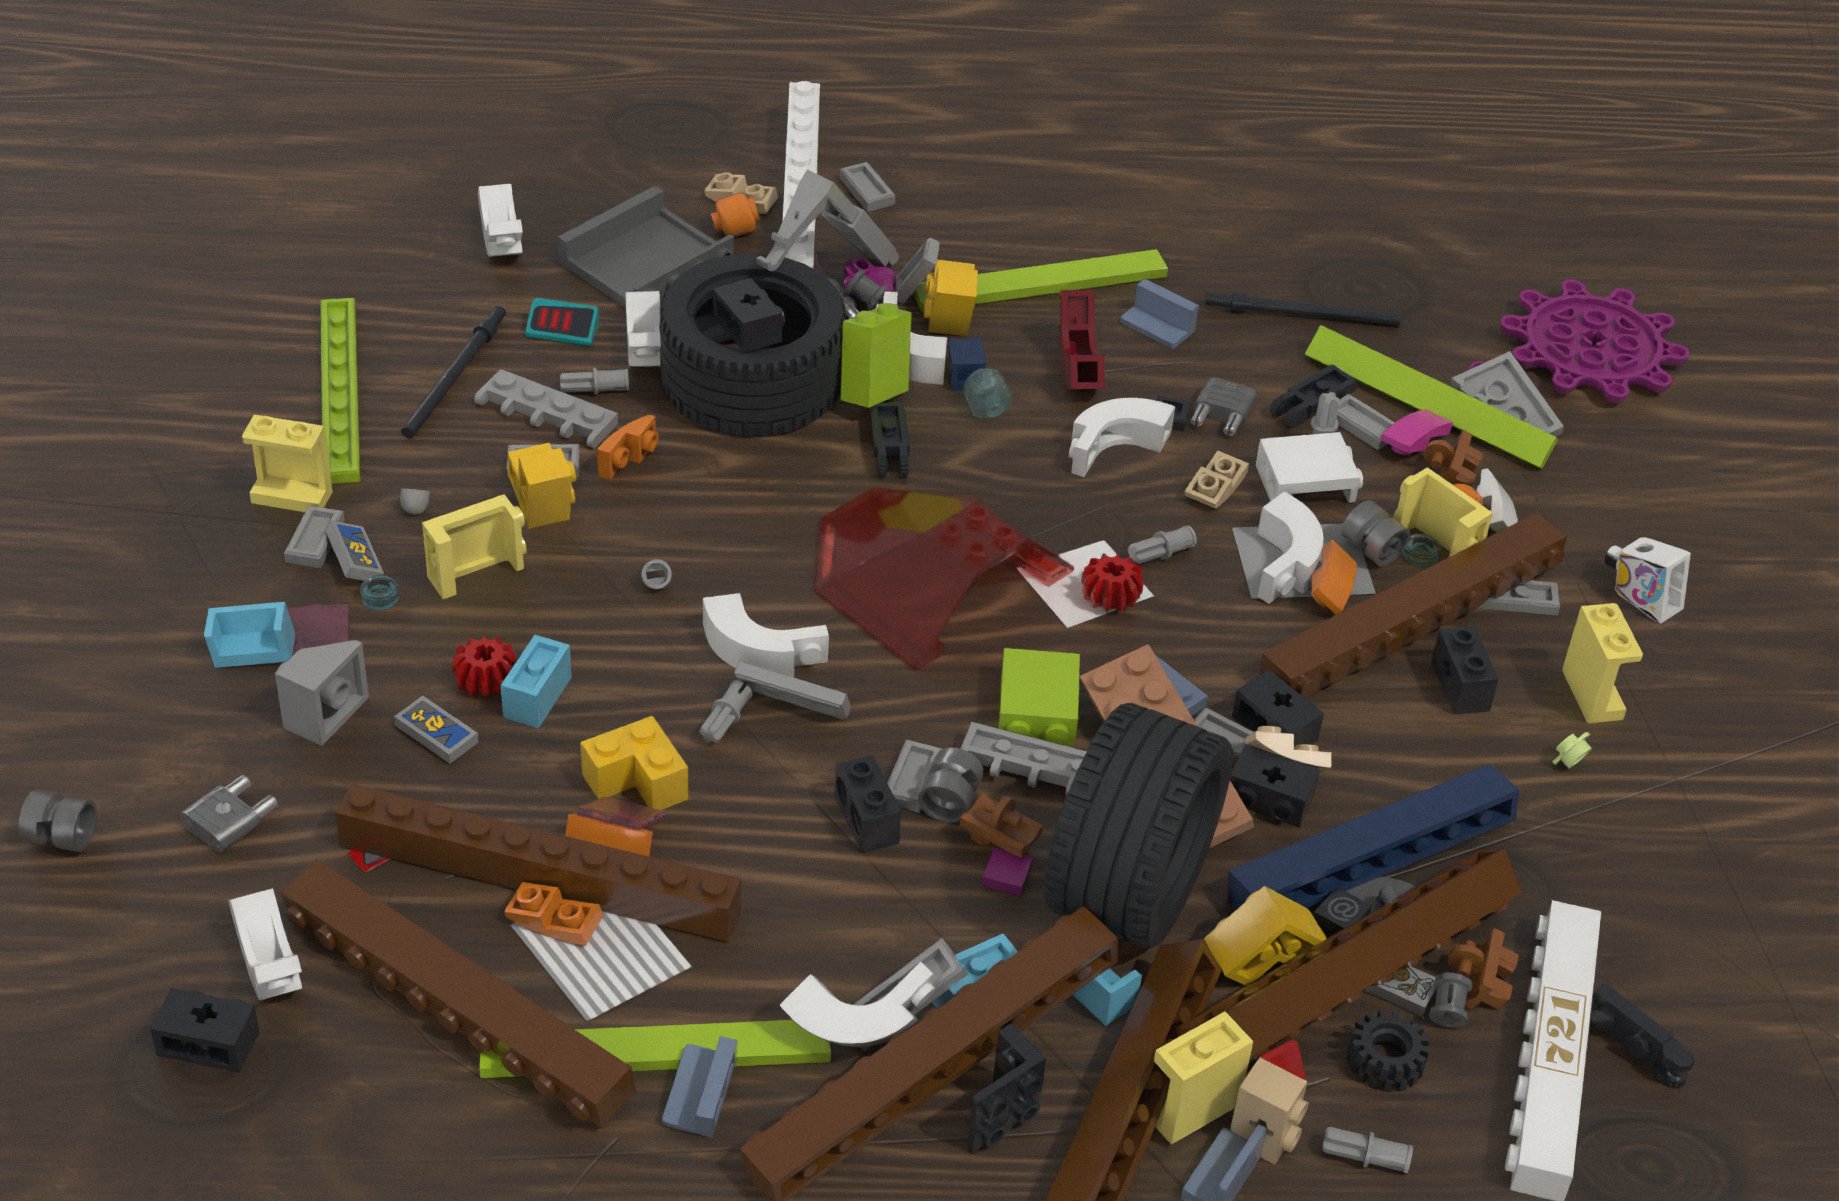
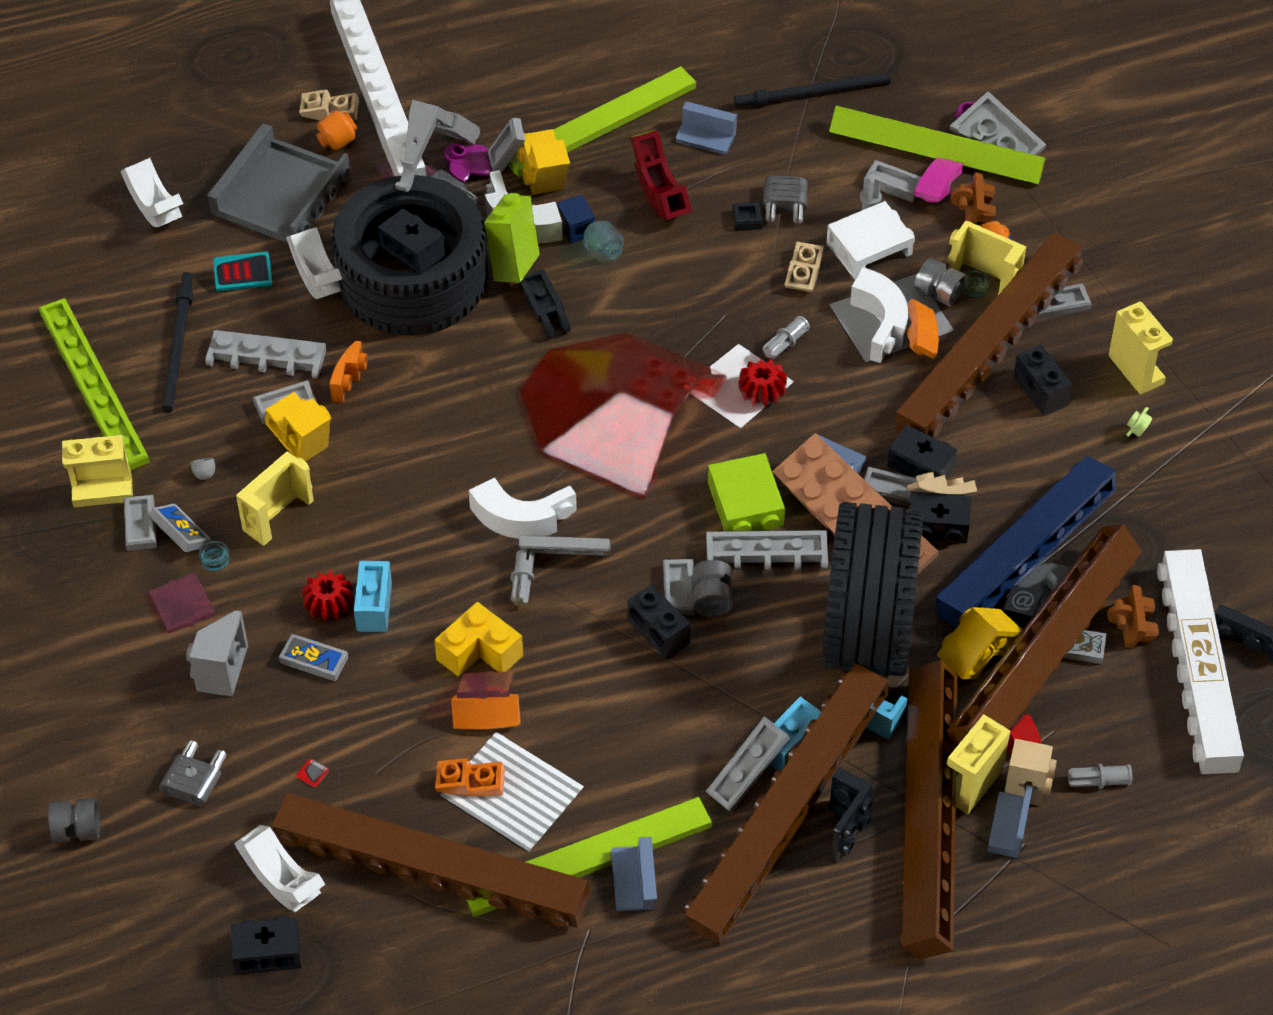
camera: 15 degrees left, 10 degrees up
(249, 634) = (138, 624): medium azure panel -> none
(515, 854) = (428, 741): reddish brown brick -> none
(595, 381) = (293, 318): light grey axle -> none
(657, 582) = (422, 482): light grey hinge -> none
(860, 1025) = (727, 798): white arch -> none
(866, 290) = (472, 173): dark grey bush -> none
(867, 186) = (427, 69): light grey tile -> none
(1001, 825) = (761, 610): dark orange hips -> none
(1007, 872) = (777, 643): magenta tile -> none
(1119, 422) = (713, 237): white arch -> none
(1307, 392) = (850, 168): black hinge -> none
(1385, 1069) = (1089, 713): black tyre -> none
(1440, 1012) = (1117, 658): dark grey bush -> none
(1496, 501) = (1020, 228): white slope -> none
(1625, 349) = (1068, 50): magenta plate -> none
(1651, 576) = (1150, 260): white torso -> none

